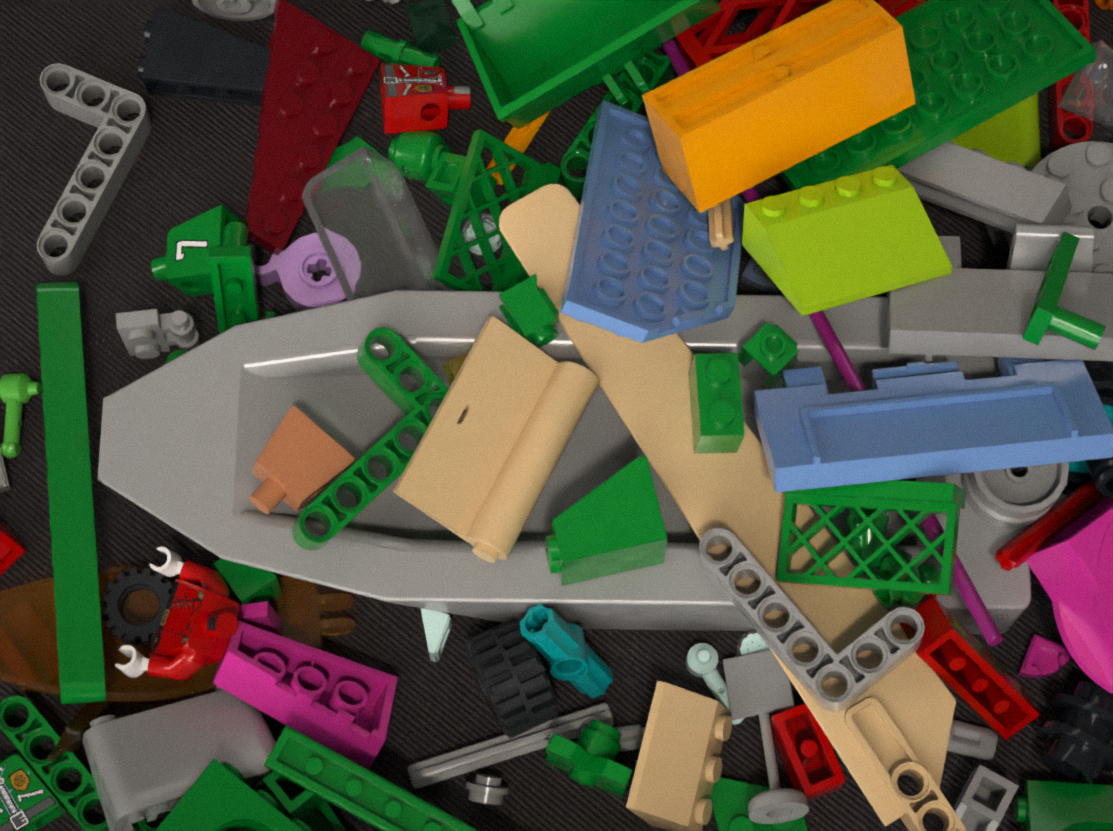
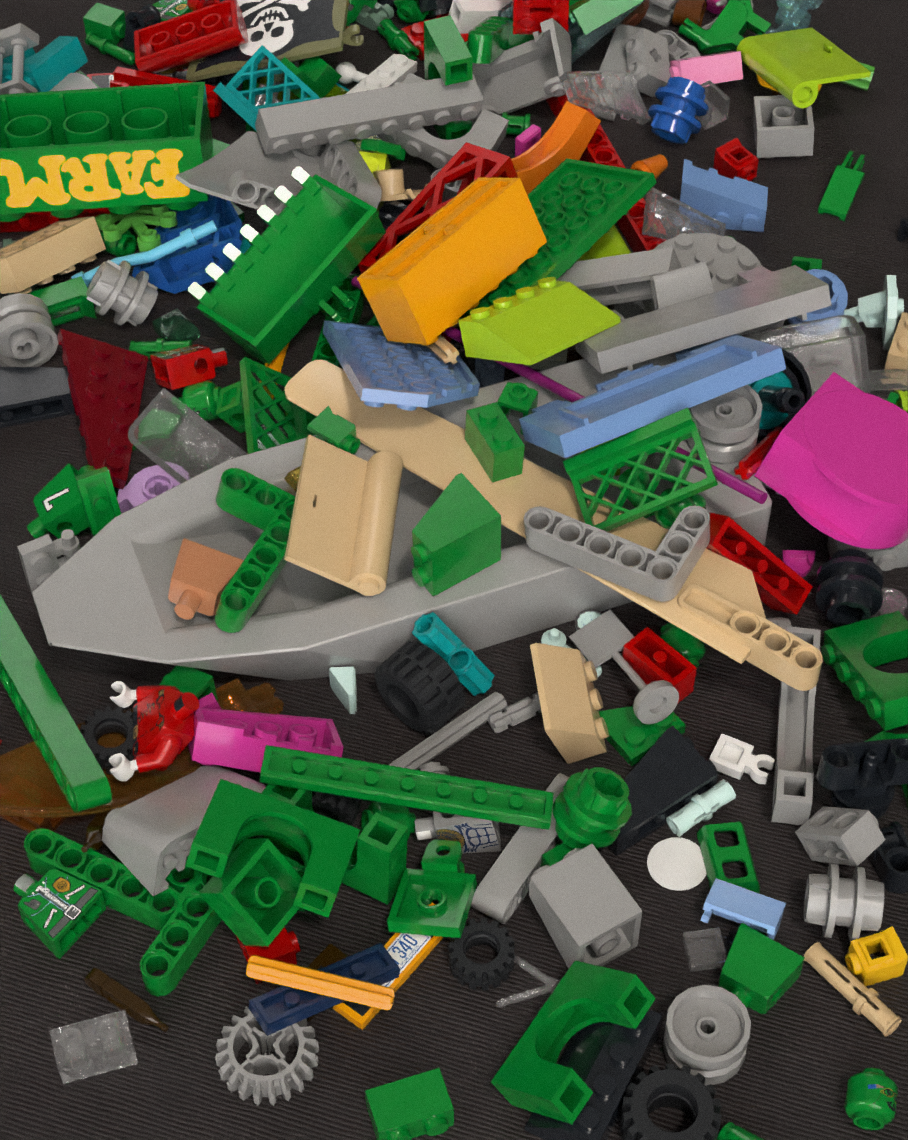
camera: 20 degrees left, 20 degrees down
(591, 758) = (502, 722): green plant -> none
(1050, 316) = (699, 304): green piece -> none

